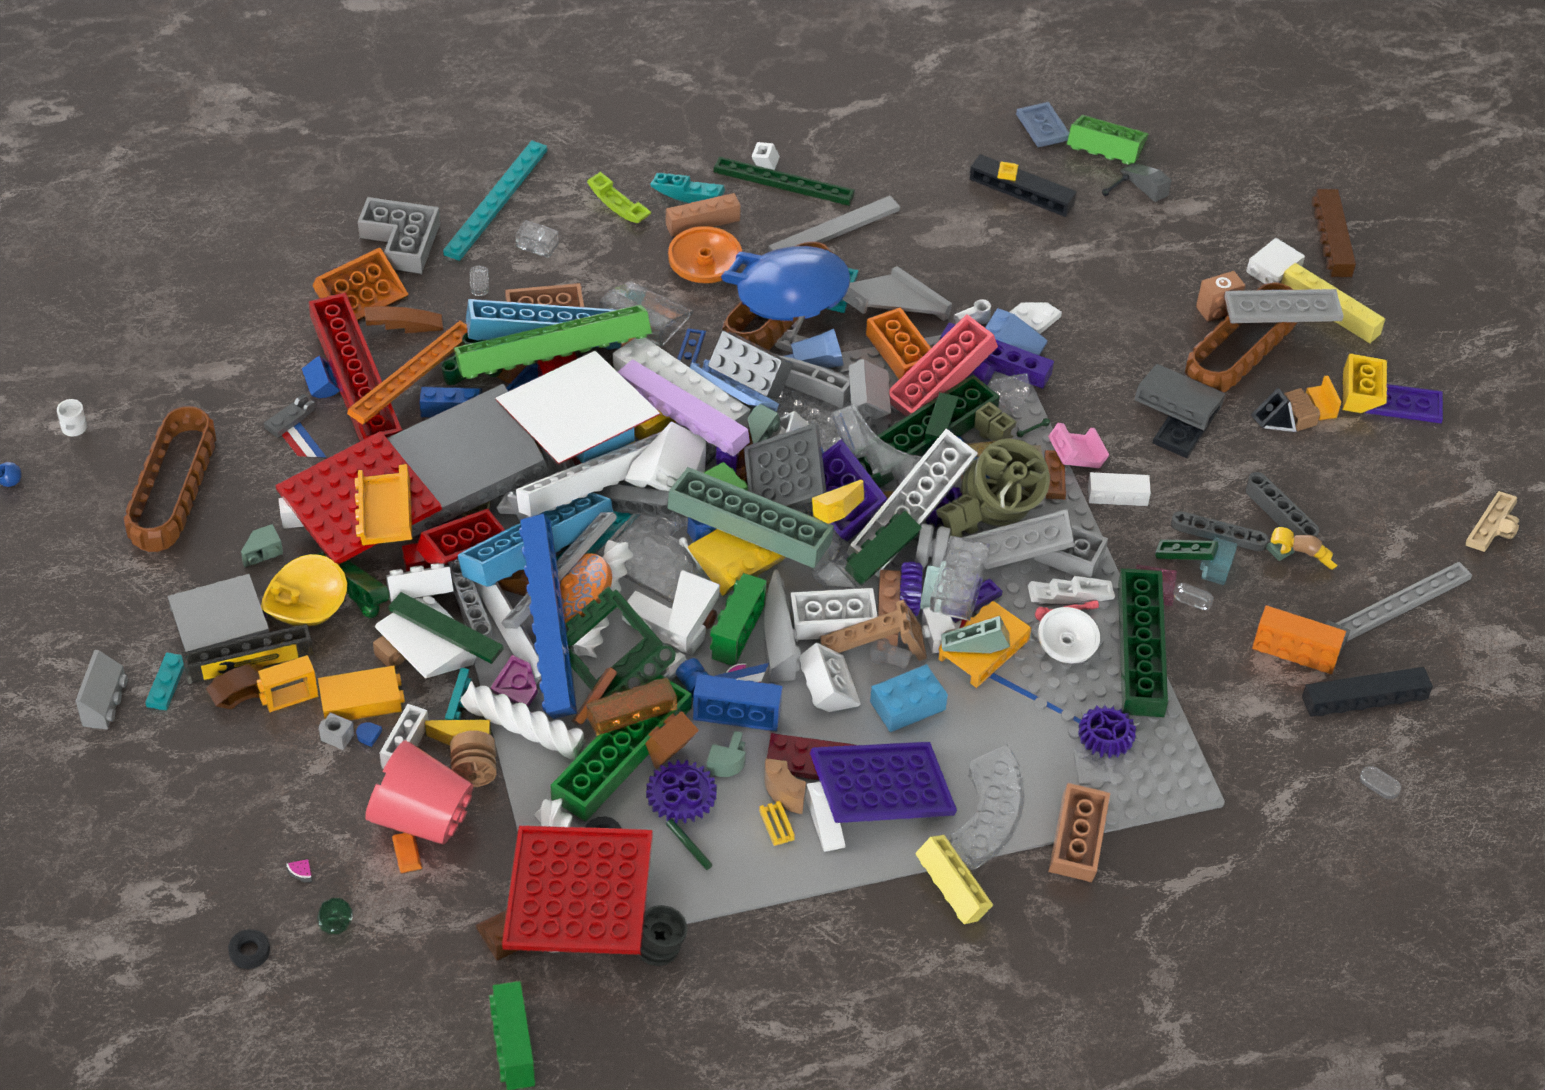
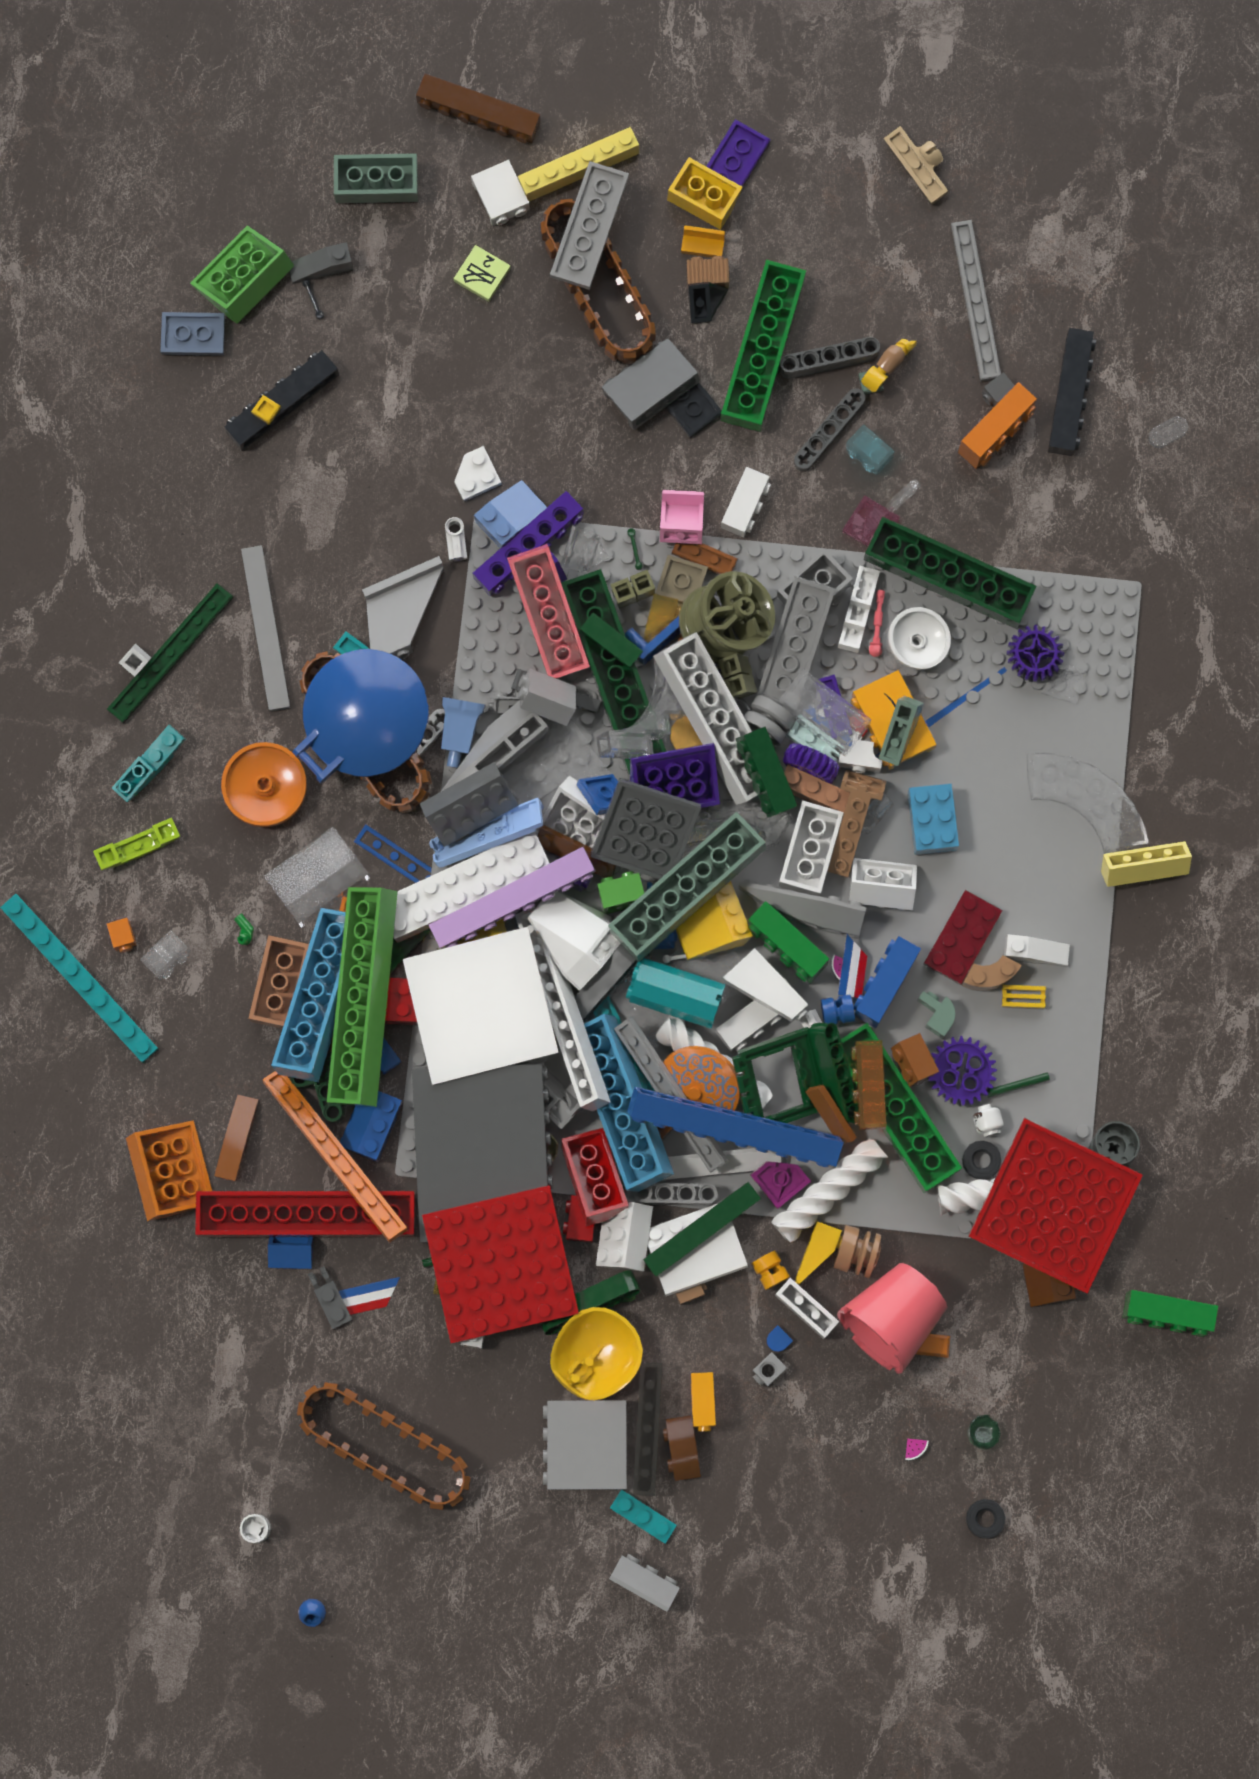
camera: 65 degrees left, 30 degrees up
(261, 545) = (505, 1374): sand green slope -> none
(362, 693) = (733, 1333): light orange brick -> none
(384, 507) = (537, 1243): light orange panel -> none
(405, 227) = (101, 1088): light grey brick -> none
(433, 700) = (769, 1262): none -> light orange wheel
(462, 684) = (773, 1242): teal plate -> none
(479, 280) = (201, 1037): clear tile -> none
(542, 210) = (121, 935): none -> orange brick
(584, 280) = (246, 931): none -> green arm
(645, 821) = (988, 1120): none -> white head
(653, 546) = (675, 992): none -> teal brick
(702, 213) = (197, 763): nougat brick -> none
(763, 423) = (558, 825): sand green slope -> none
(838, 502) = (714, 800): yellow slope -> none
(882, 782) = (1026, 884): dark purple plate -> none
(897, 340) = (483, 634): orange brick -> none
(1079, 832) = (1138, 730): nougat brick -> none
(1187, 549) = (848, 474): dark green tile -> none
(1199, 270) = (482, 273): none -> yellowish green tile
(1211, 297) = (534, 275): nougat brick -> none
(1235, 187) = (375, 178): none -> sand green brick
(1274, 456) = (763, 345): none -> green brick

